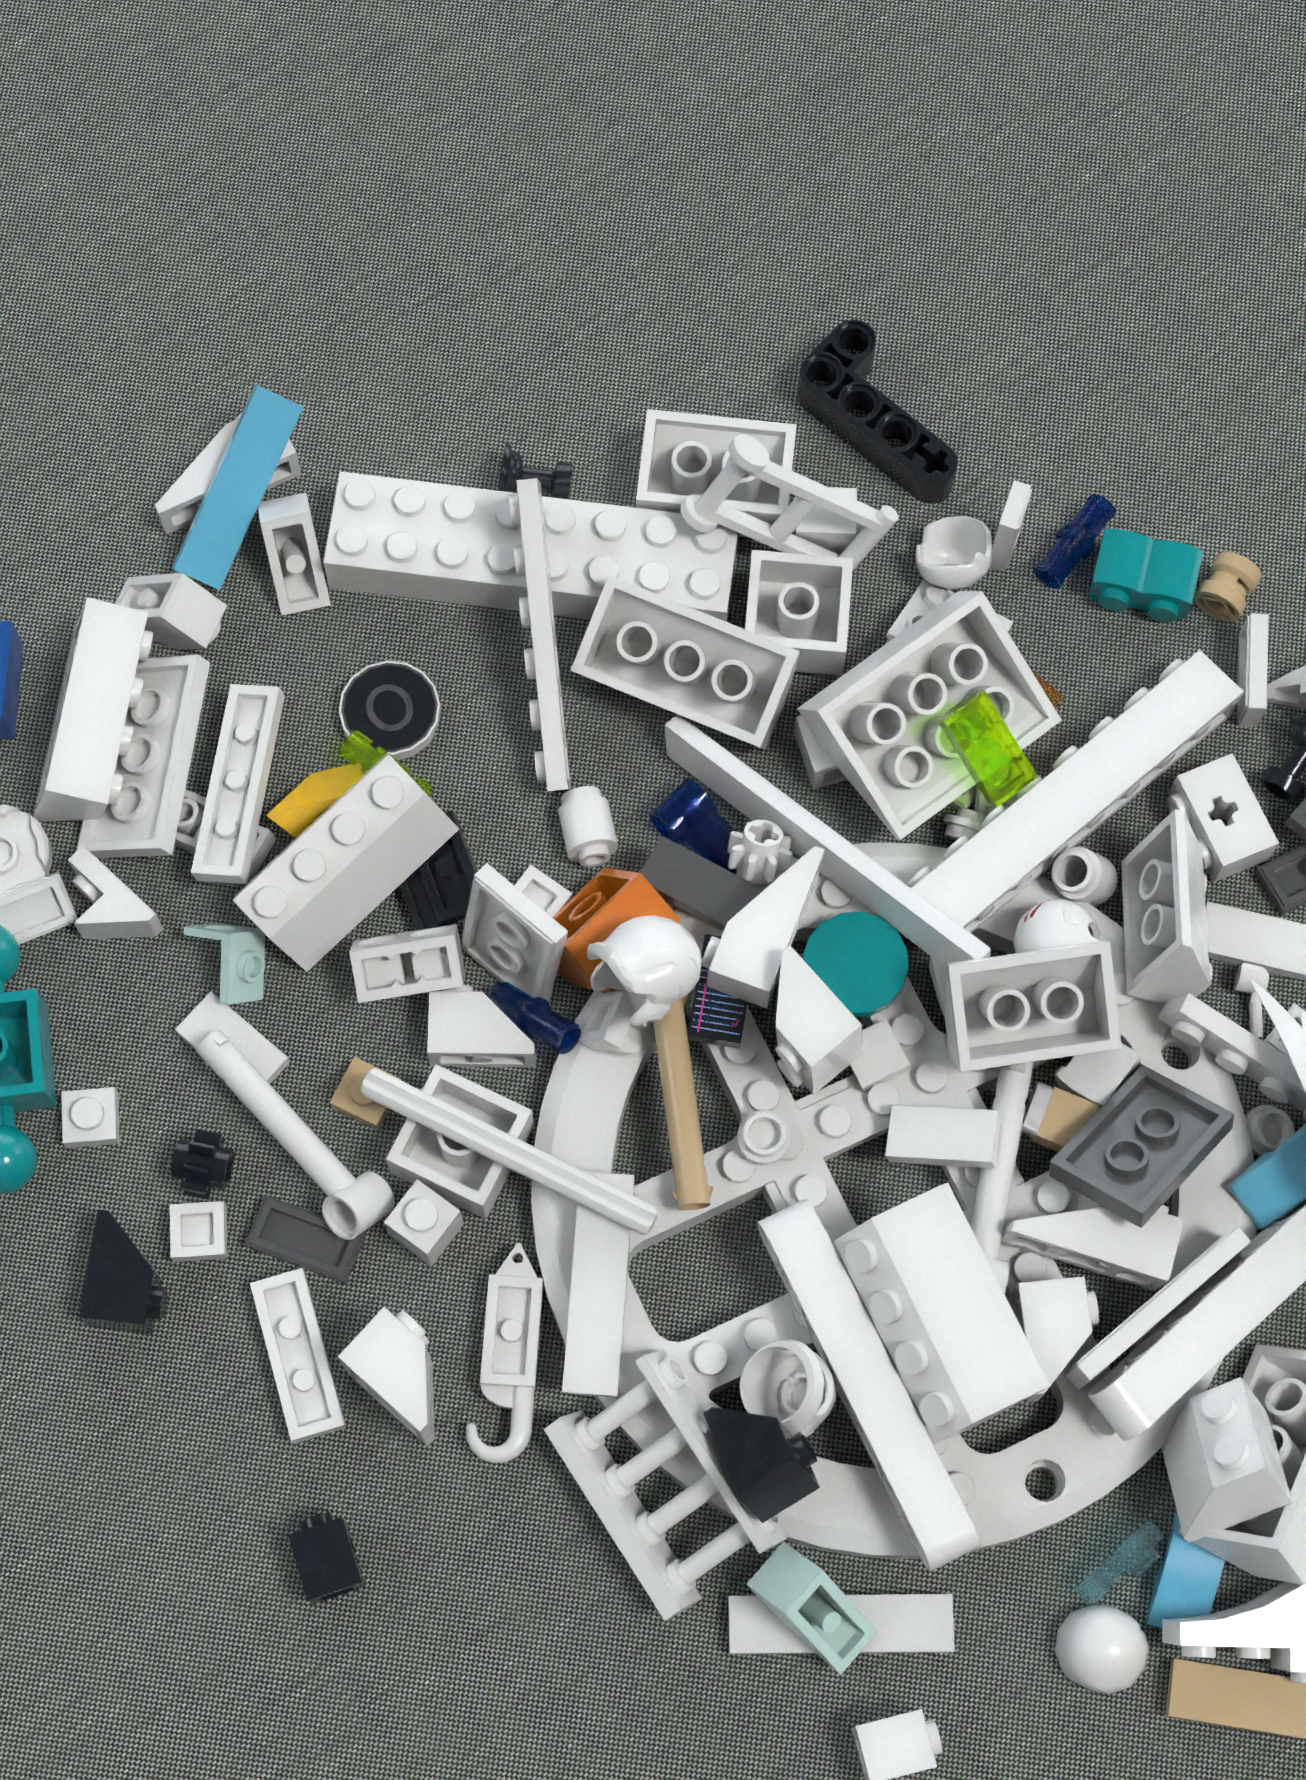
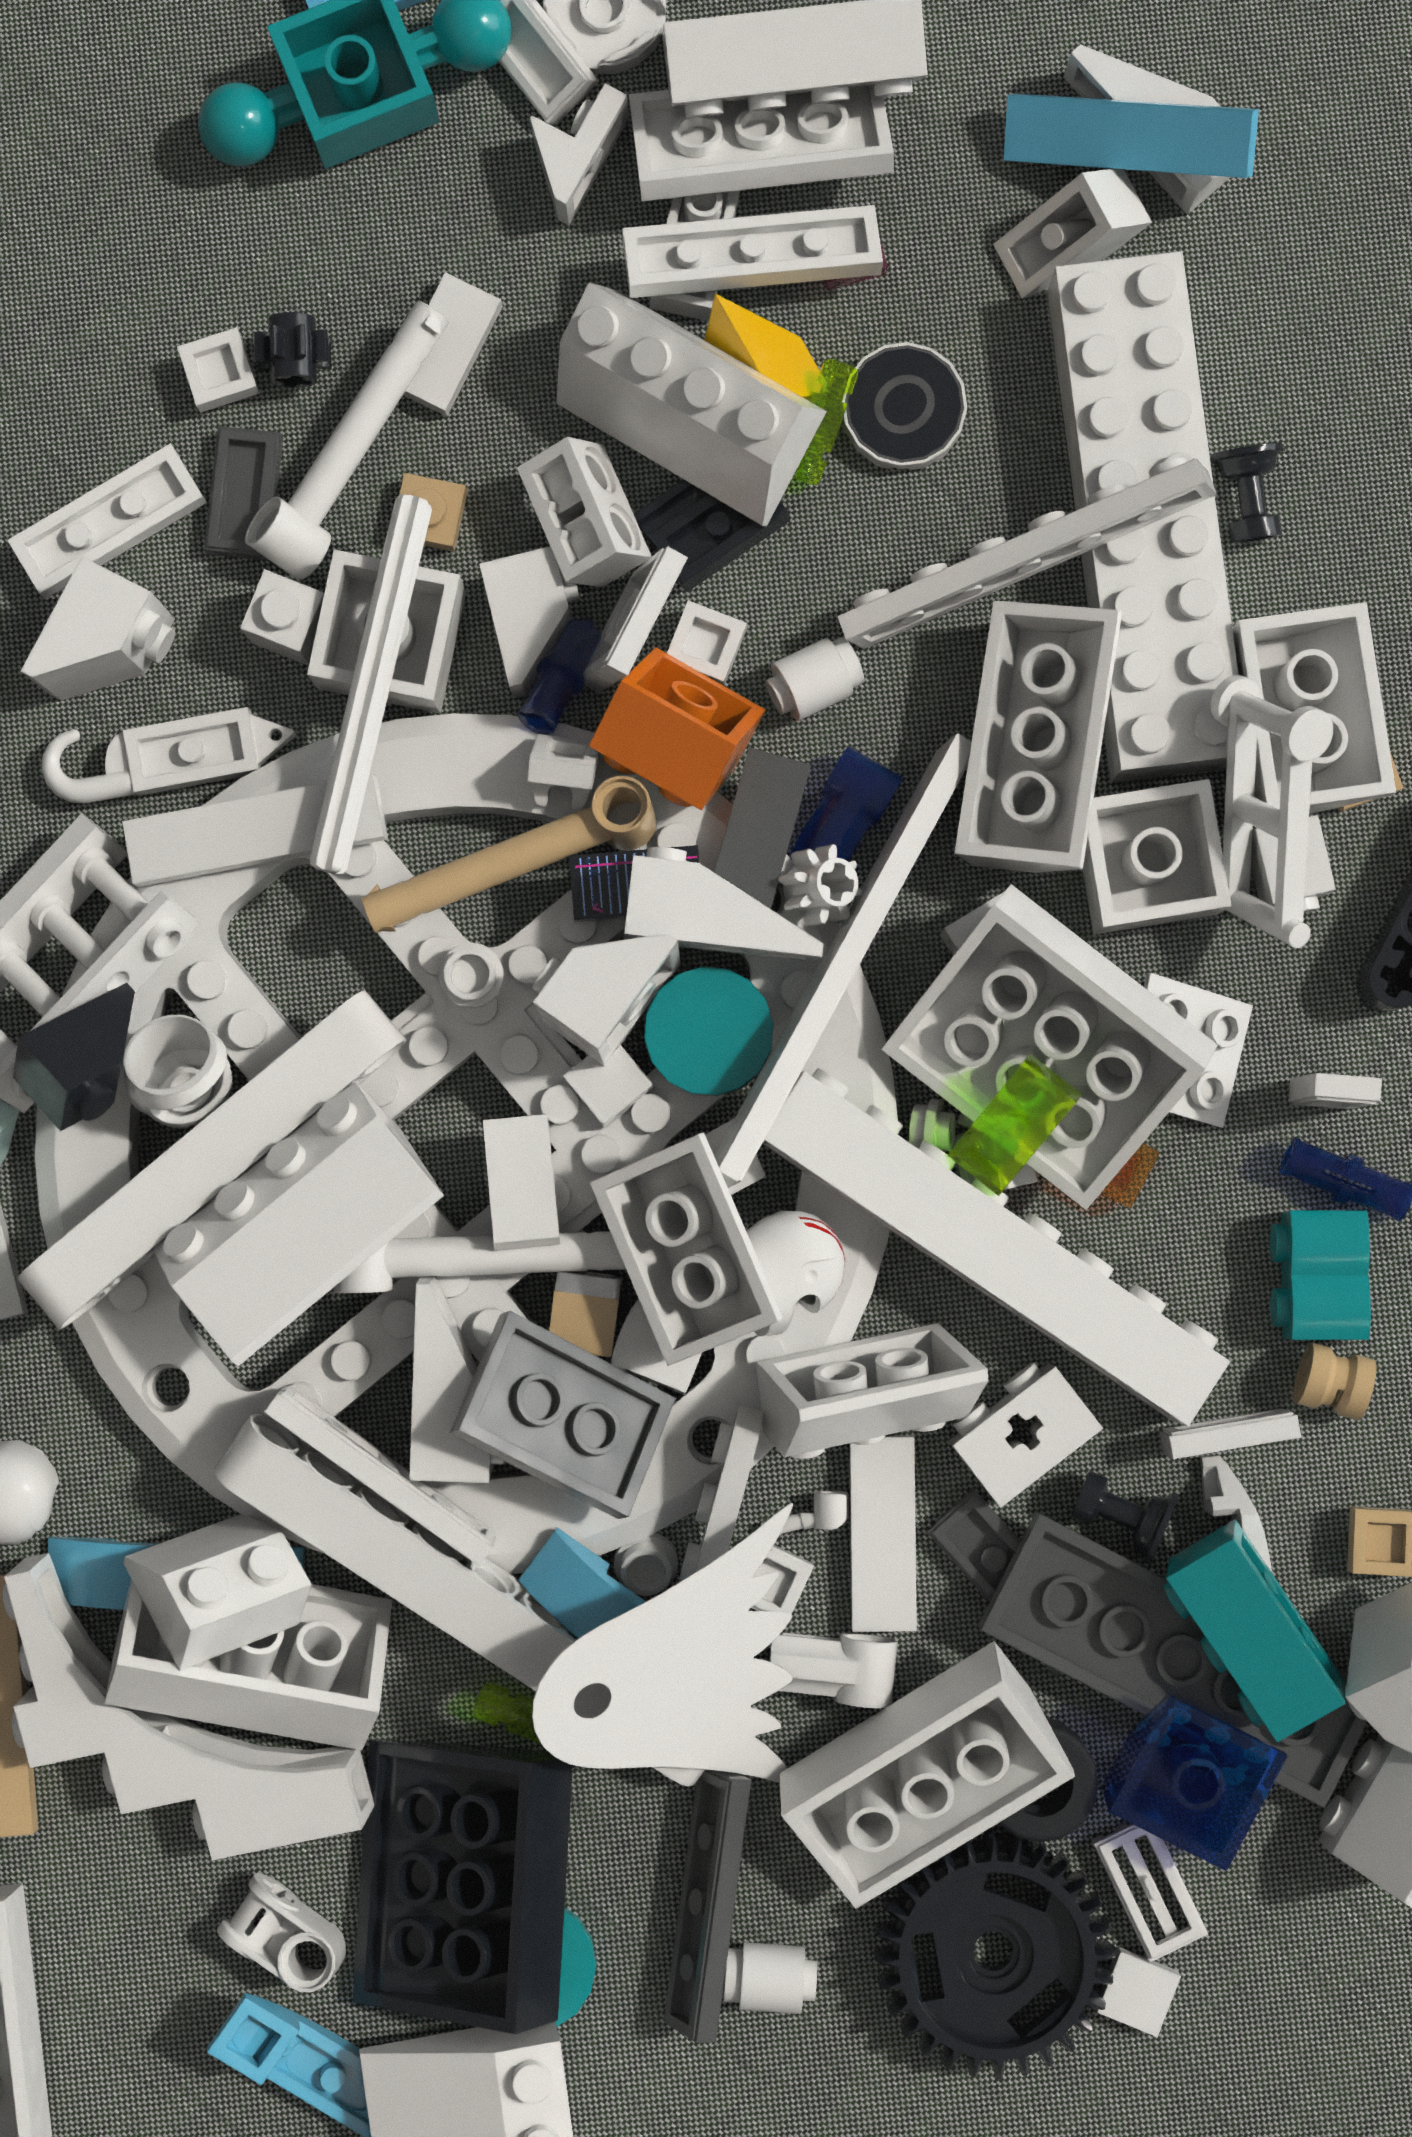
camera: 80 degrees right, 15 degrees up
(90, 1117) = (322, 210): white plate -> none
(119, 1282) = (140, 299): black slope -> none
(177, 609) = (955, 107): white slope -> none
(240, 960) = (538, 319): light aqua bracket -> none
(649, 960) = (616, 780): white hair -> none
(954, 552) = (1287, 1031): white hair -> none
(1055, 1320) = (327, 1358): white slope -> none
(1084, 876) = (900, 1281): white brick -> none
(1132, 1555) = (112, 1503): clear light blue plate -> none

